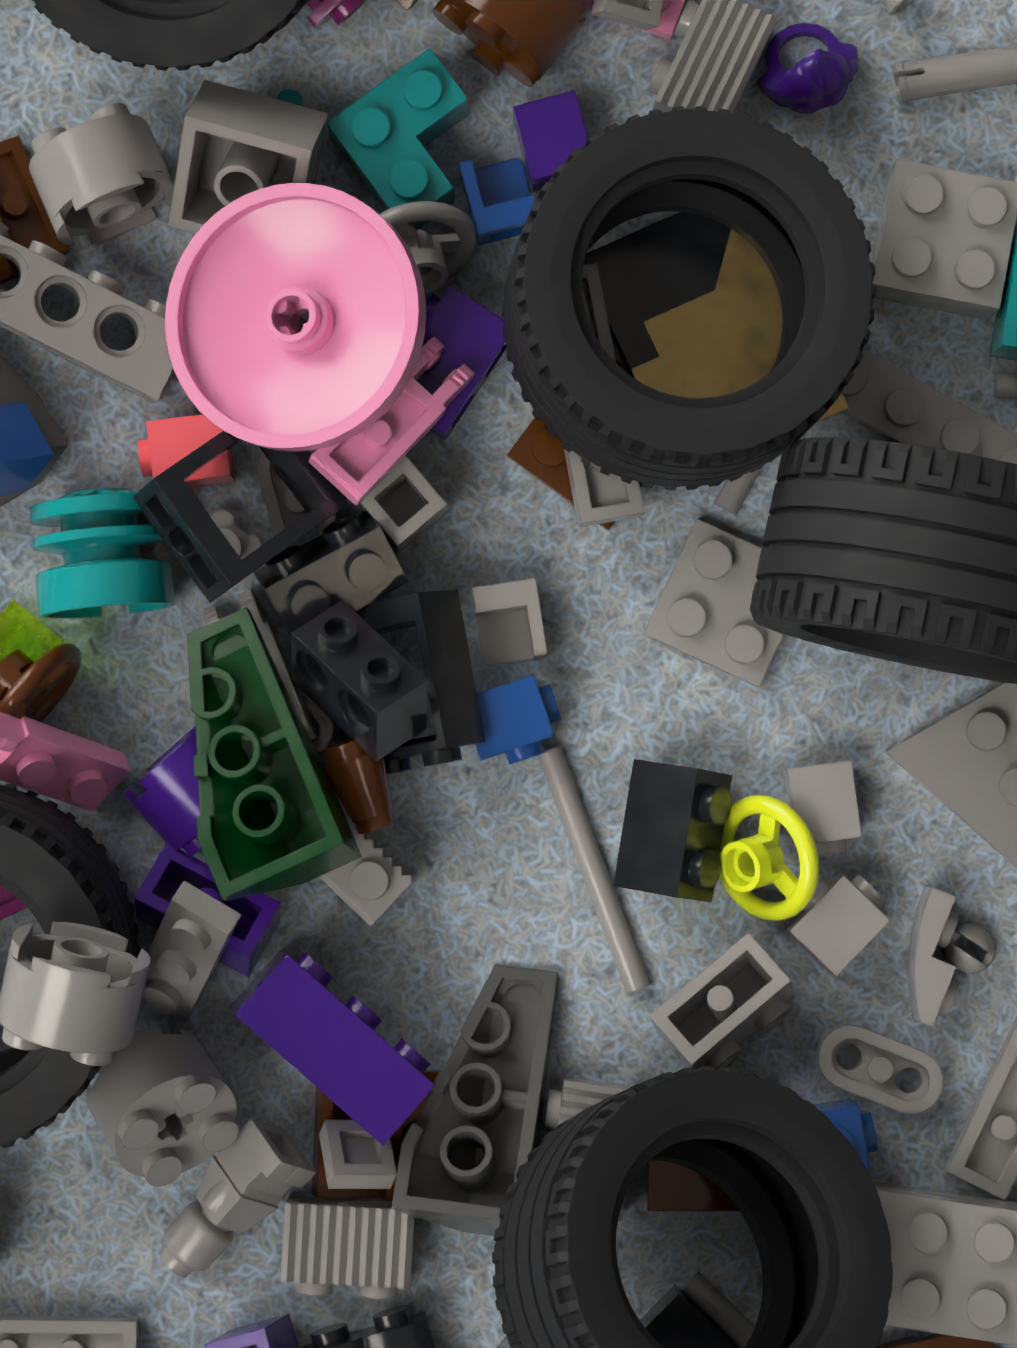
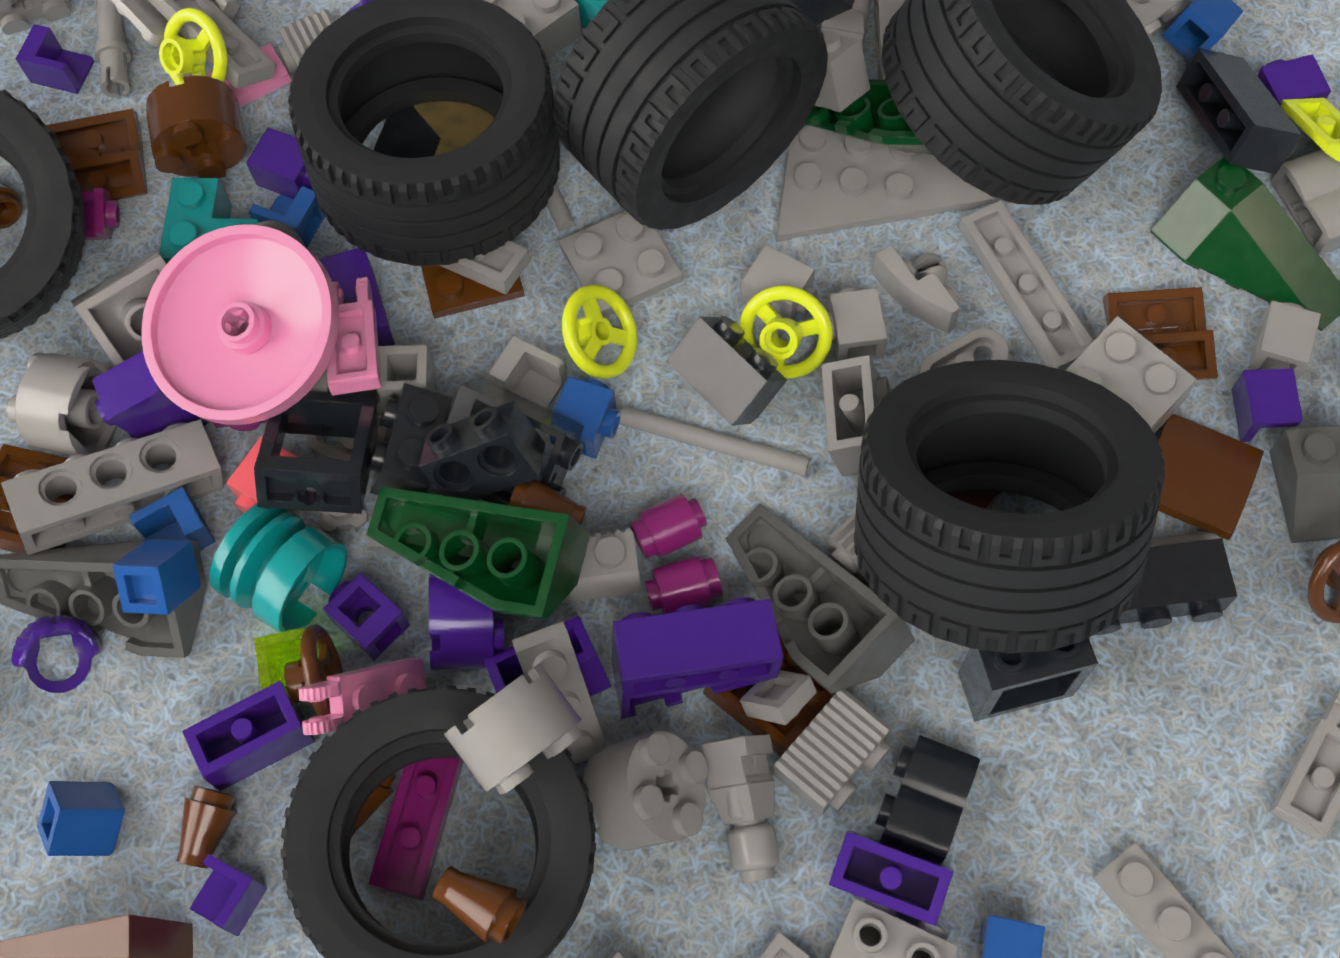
camera: 45 degrees left, 20 degrees down
(73, 398) = (173, 518): none -> blue panel
(110, 693) = (380, 629): none -> dark purple brick
(145, 251) = (135, 401): none -> dark purple brick
(405, 967) = (683, 584): none -> magenta brick
(457, 901) = (668, 526): none -> magenta brick
(608, 651) = (587, 334): none -> neon yellow piece

